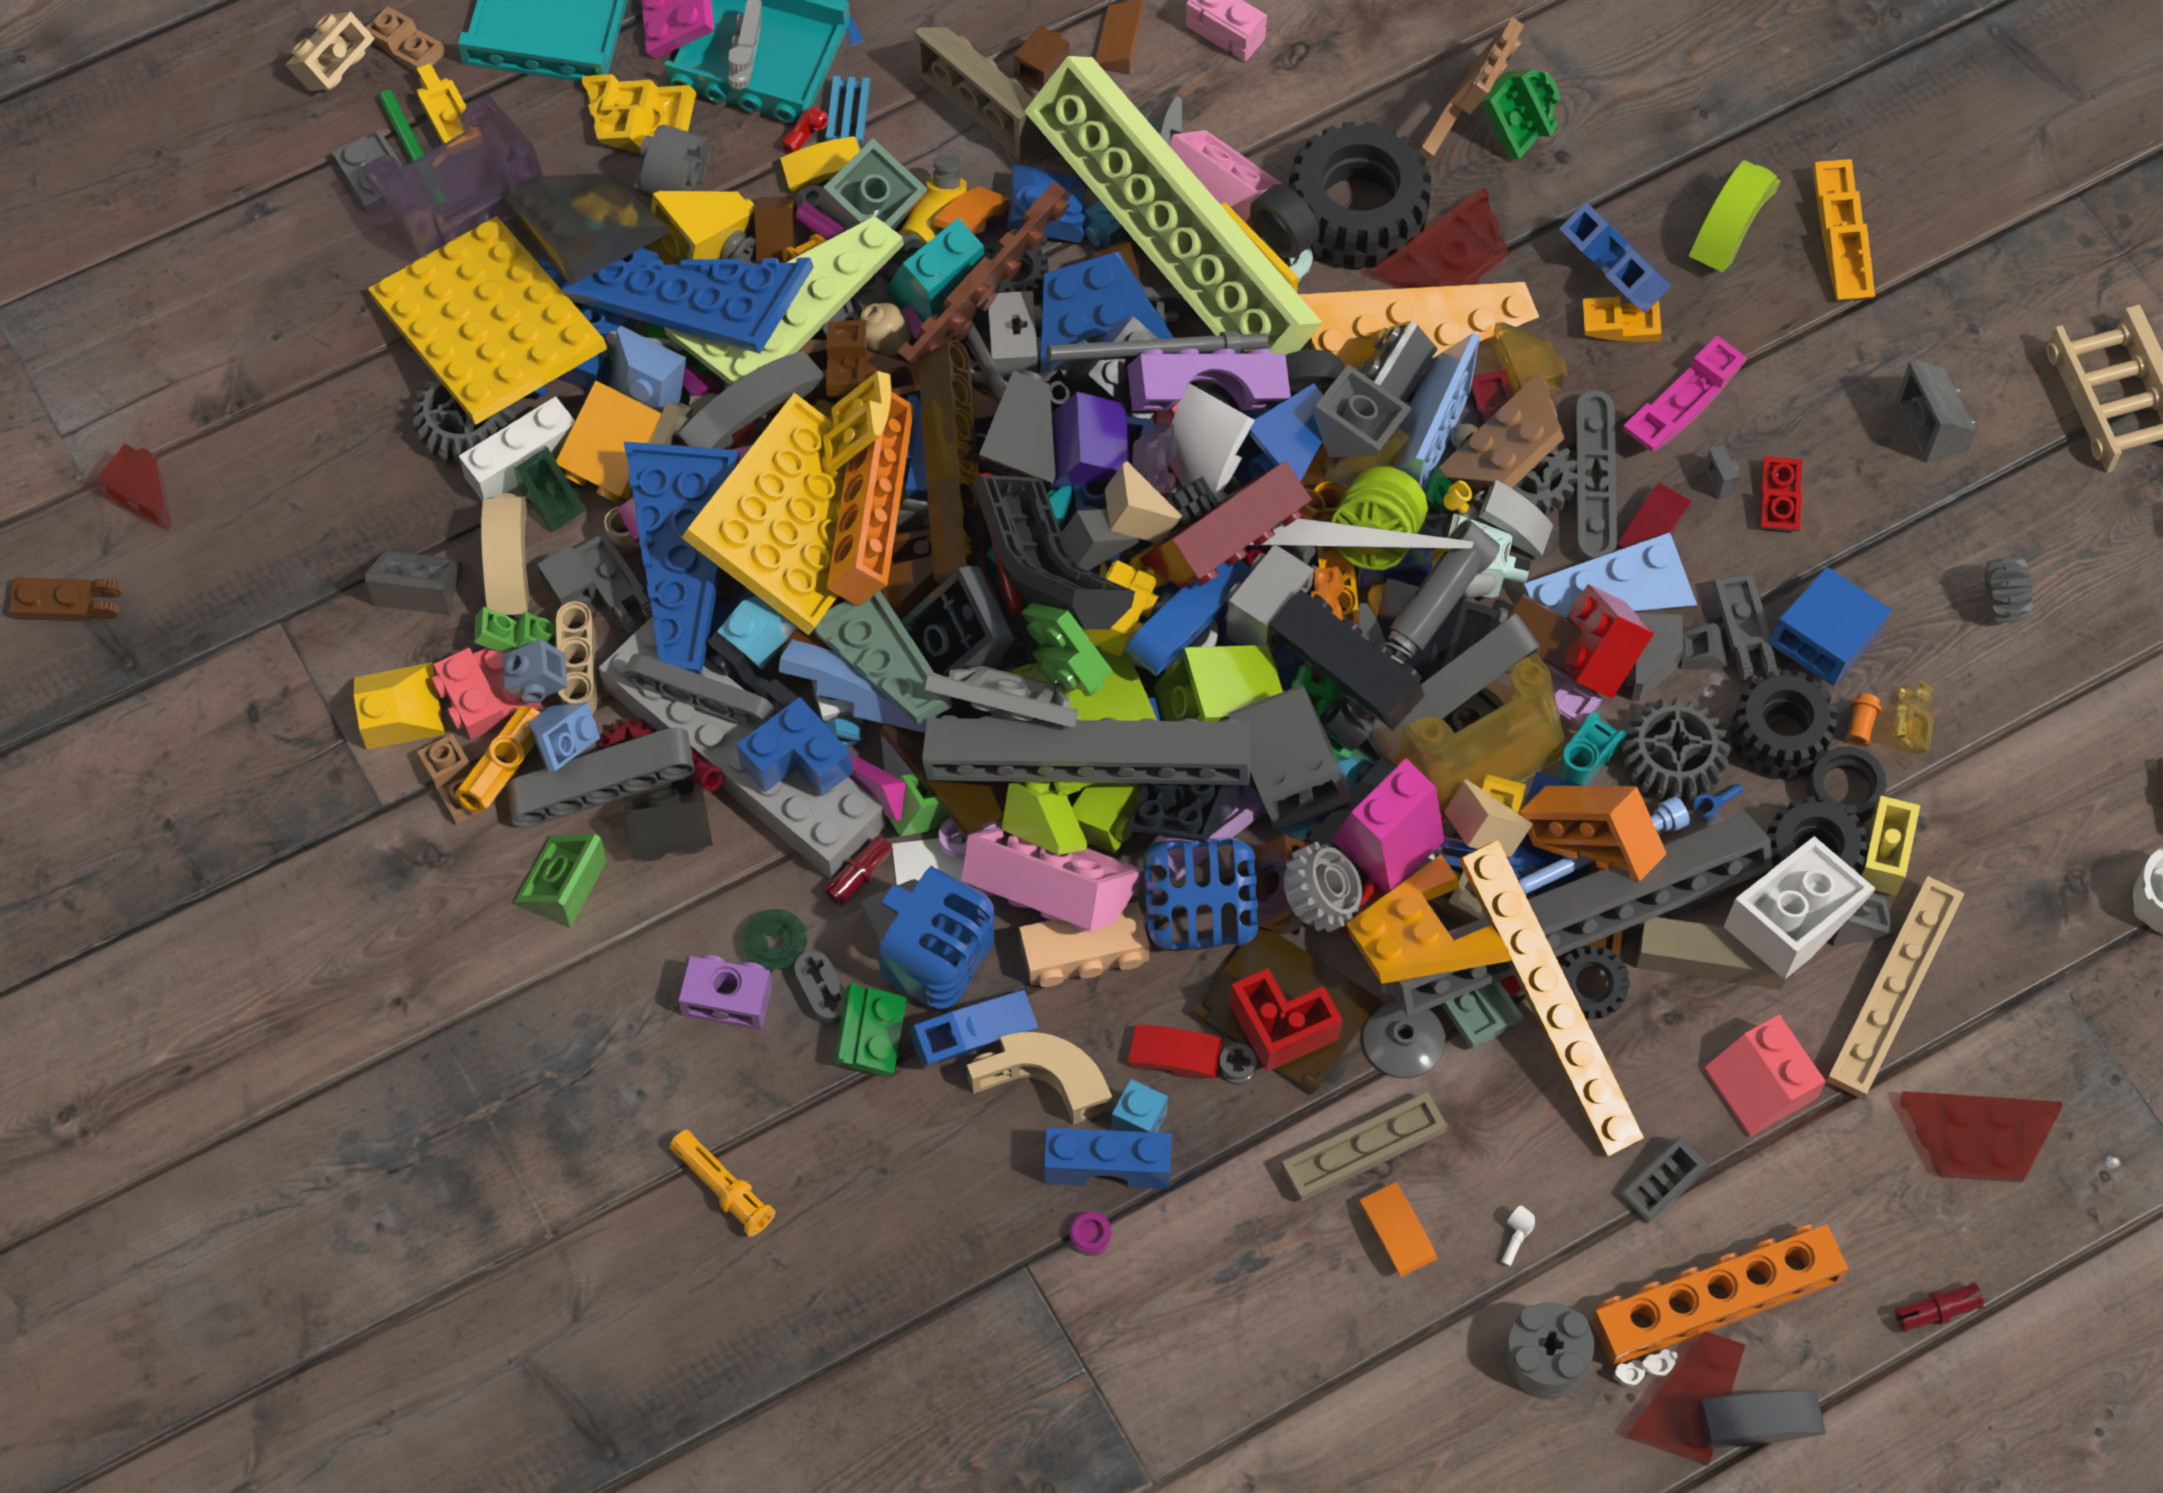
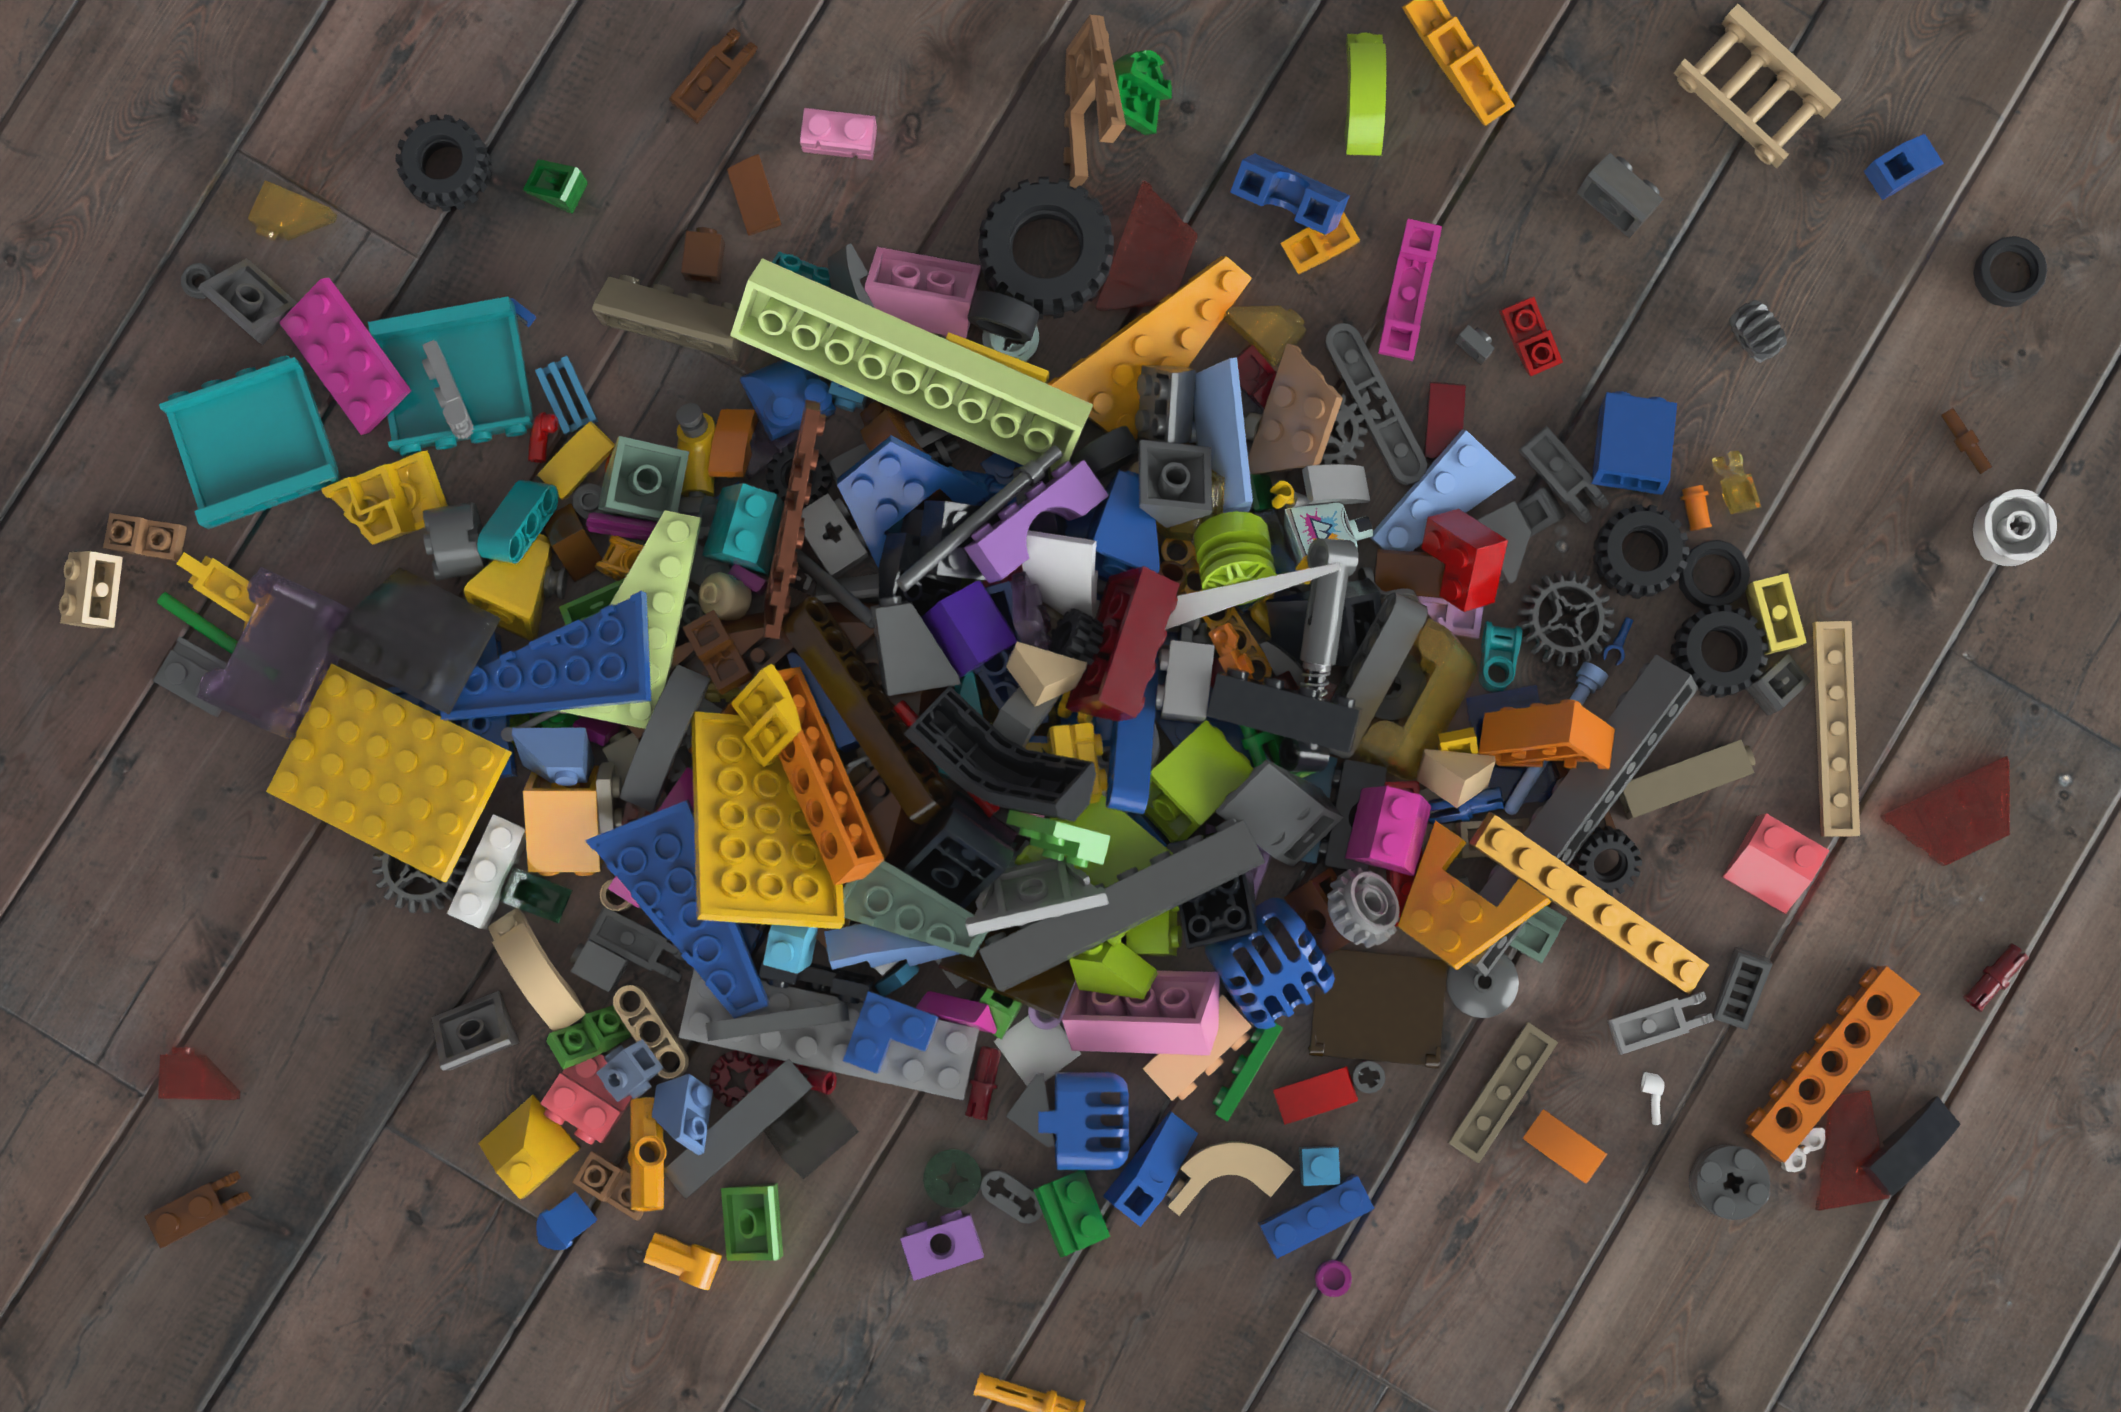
camera: 30 degrees left, 20 degrees up
(386, 782) = (564, 1223): none -> blue tile
(477, 880) = (692, 1263): none -> light orange piece
(738, 175) = (517, 521): none -> teal beam
(1121, 990) = (1244, 1071): none -> green plate
(1280, 1028) = (1394, 1041): red brick -> none
(1561, 1165) = (1656, 1023): none -> light grey hinge
(1797, 907) = (1741, 719): white slope -> none

